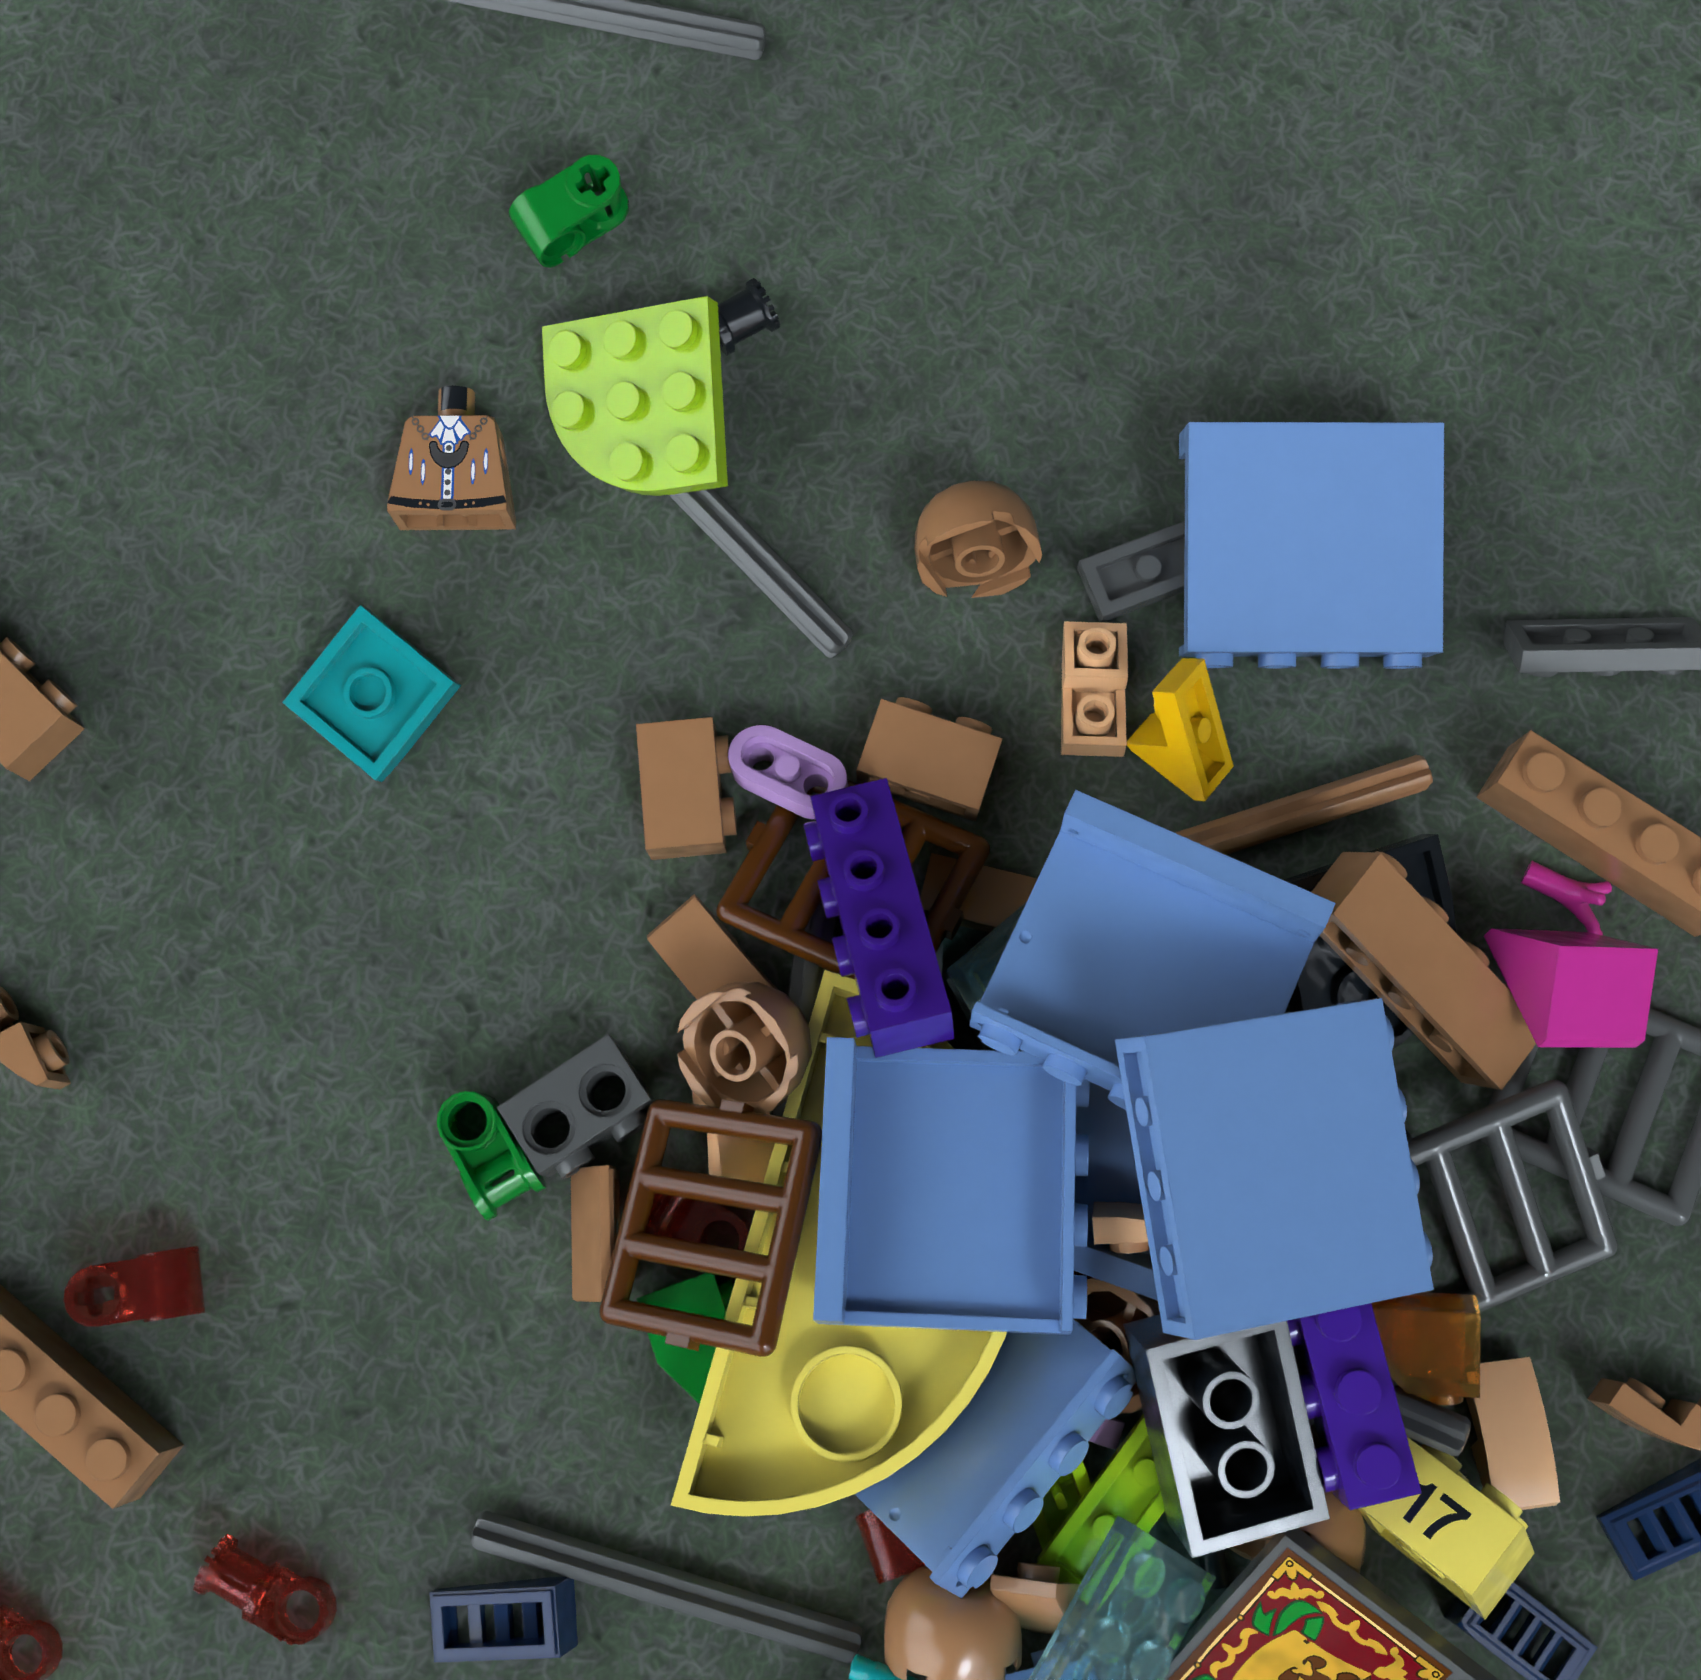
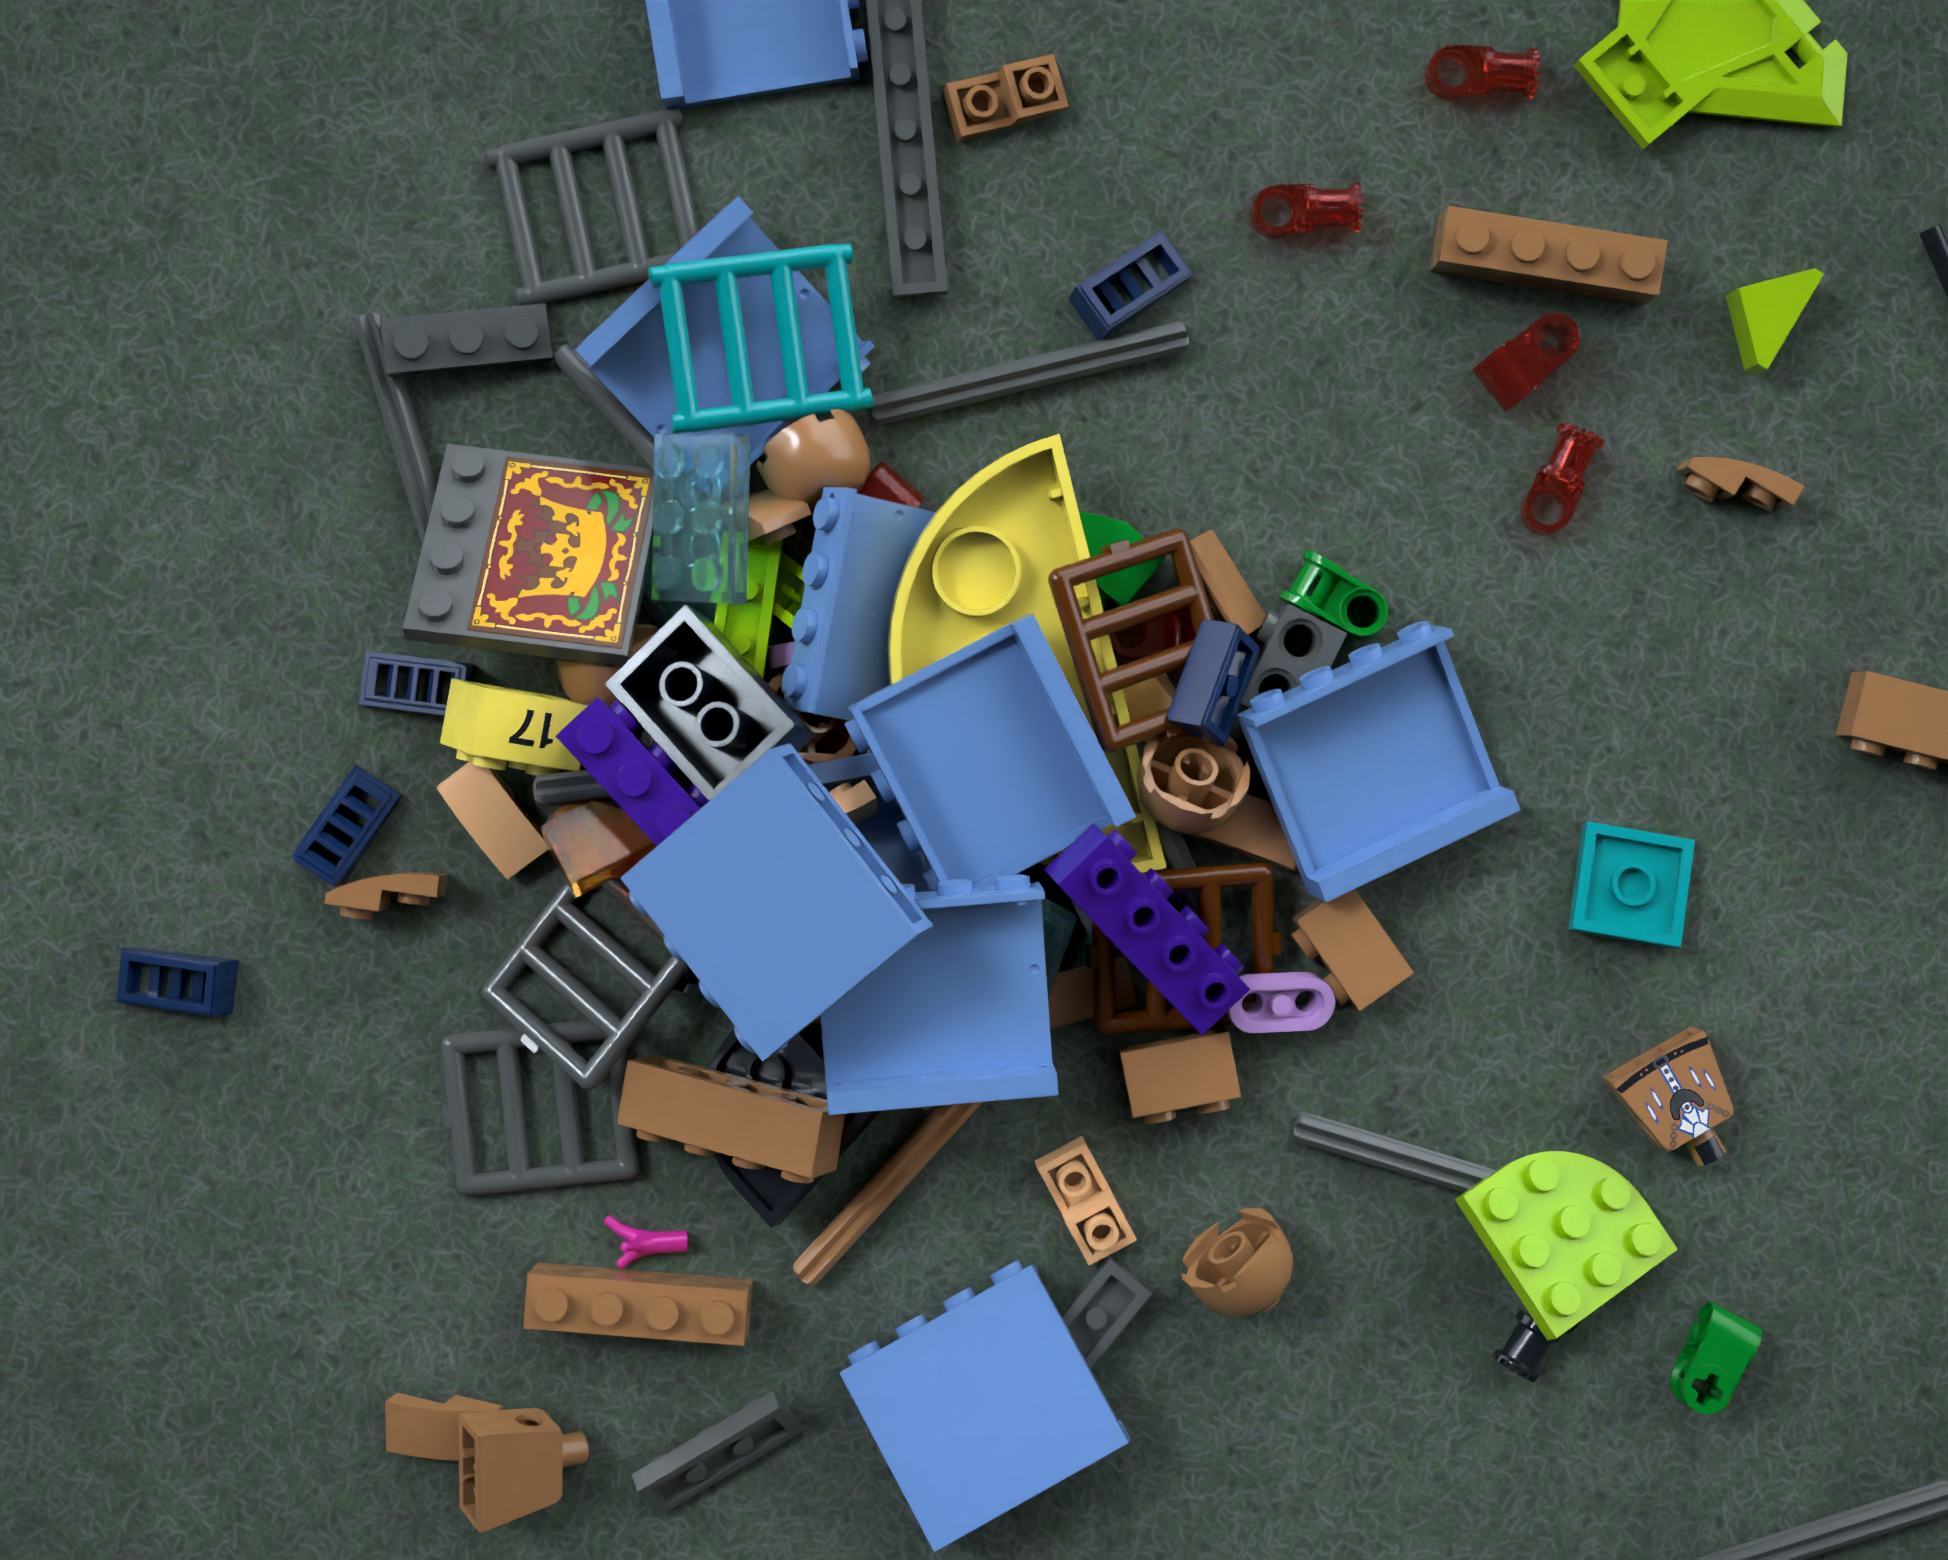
camera: 145 degrees right, 10 degrees up
(183, 1143) = (1562, 479): none -> clear red connector
(549, 959) = (1374, 762): none -> medium blue panel
(662, 1136) = (1213, 681): none -> dark blue slope
(1185, 732) = (998, 1202): yellow slope -> none
(1577, 985) = (612, 1168): dark pink slope -> none

